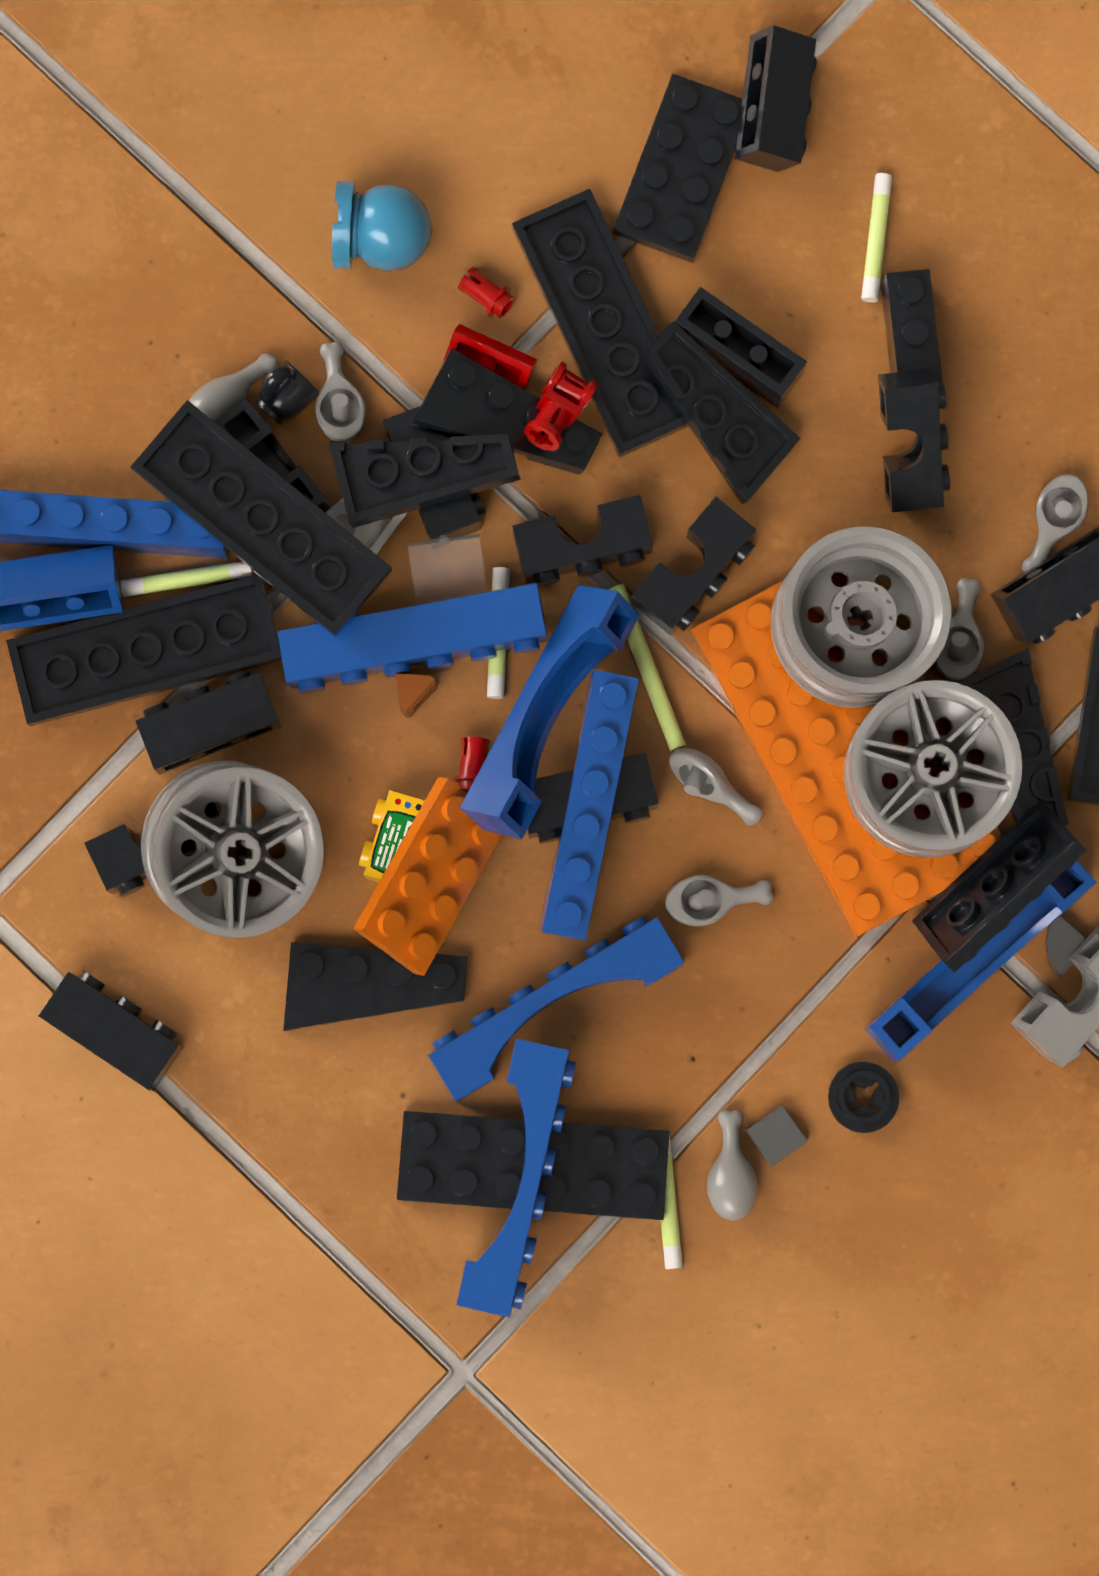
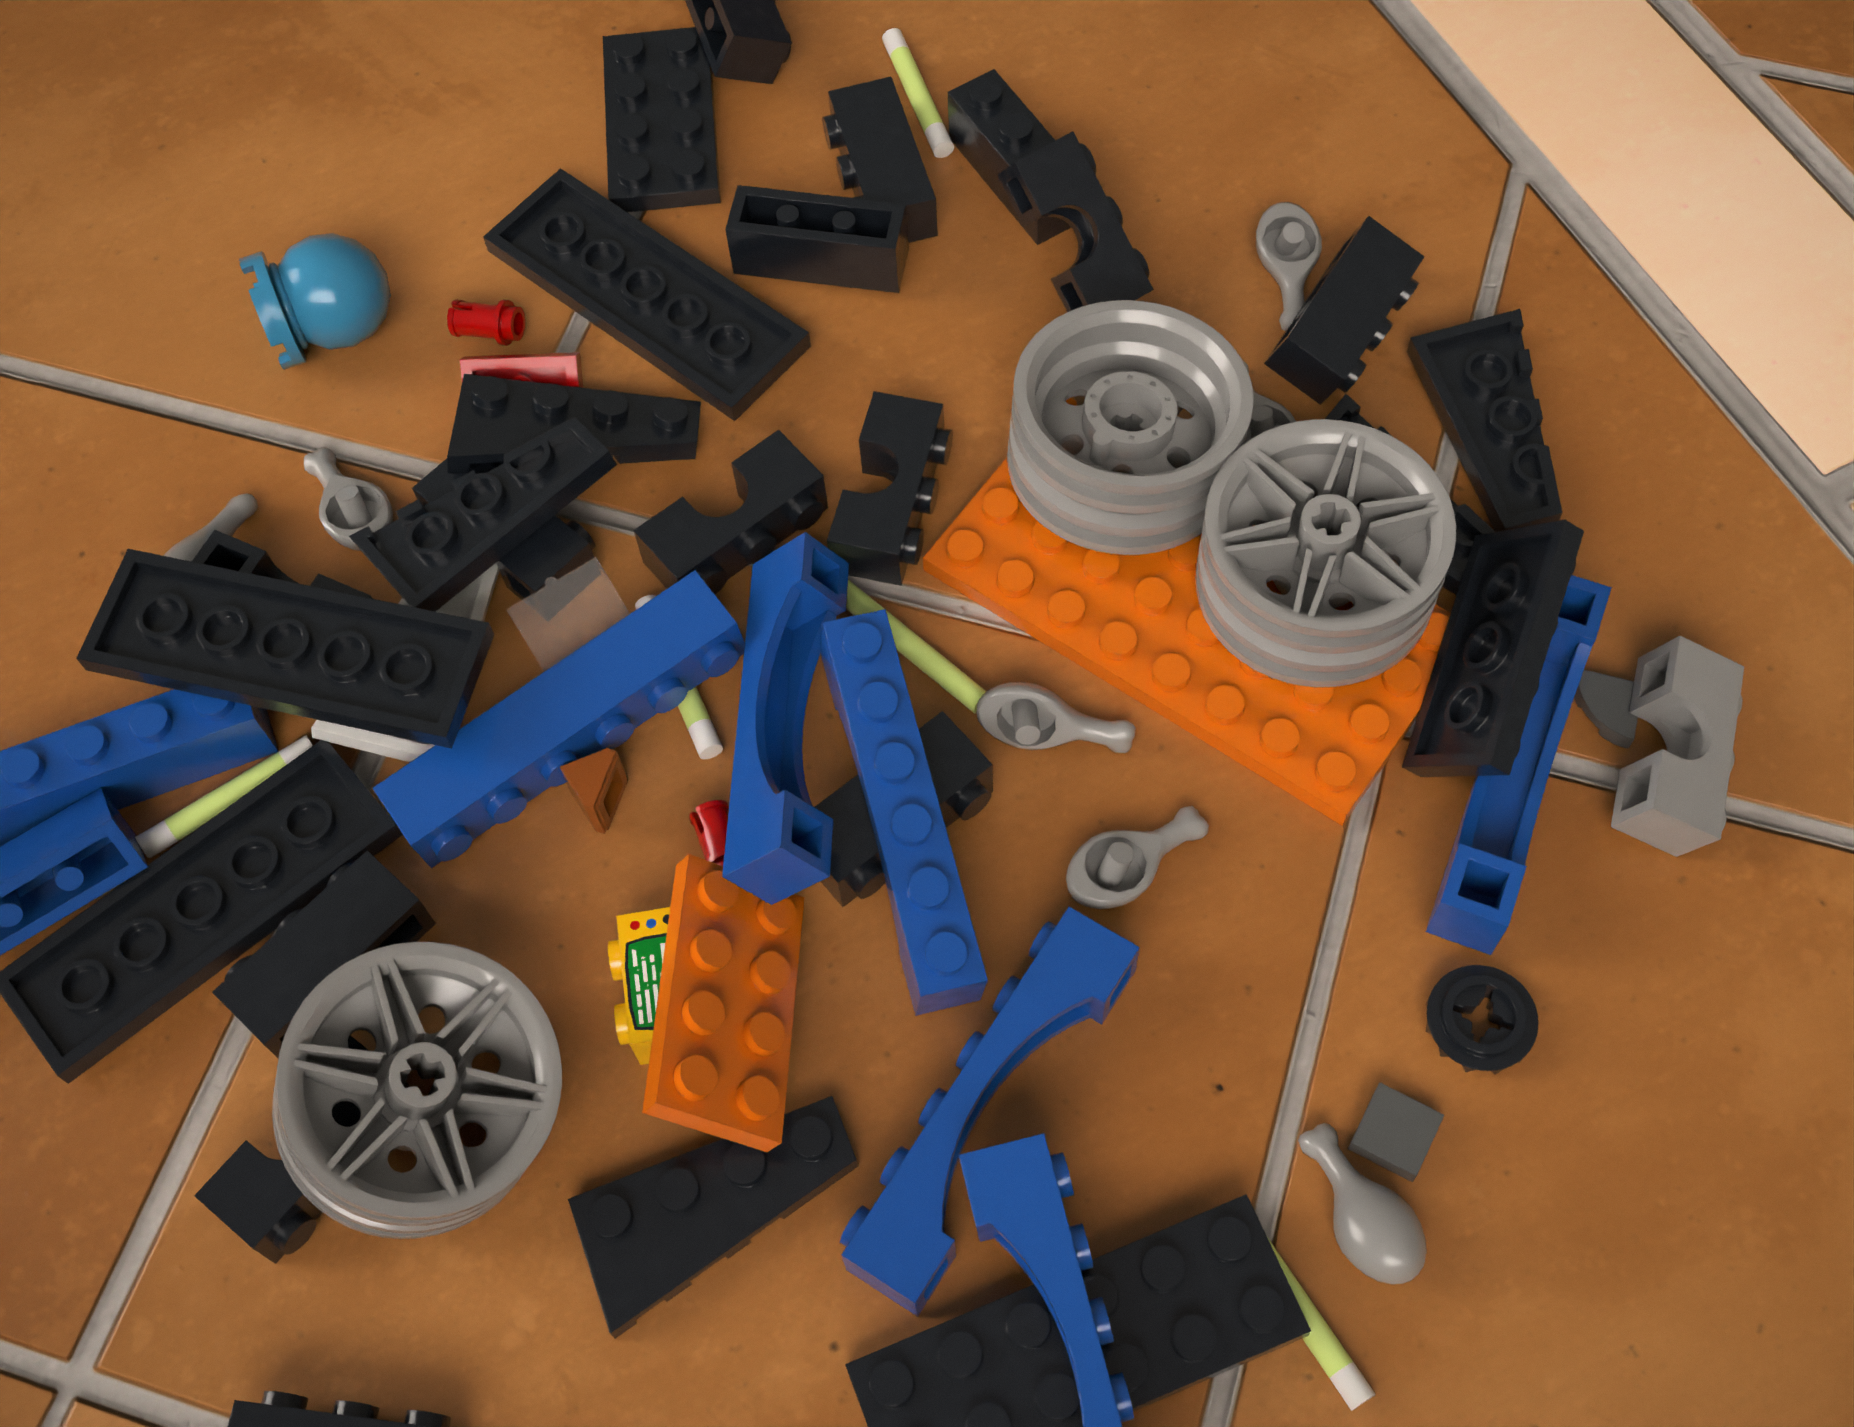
camera: 20 degrees left, 20 degrees down
(285, 393) = (274, 516): black piece -> none
(561, 402) = (631, 372): red connector -> none
(723, 414) = (838, 313): black wing -> none
(816, 294) = (880, 152): none -> black brick

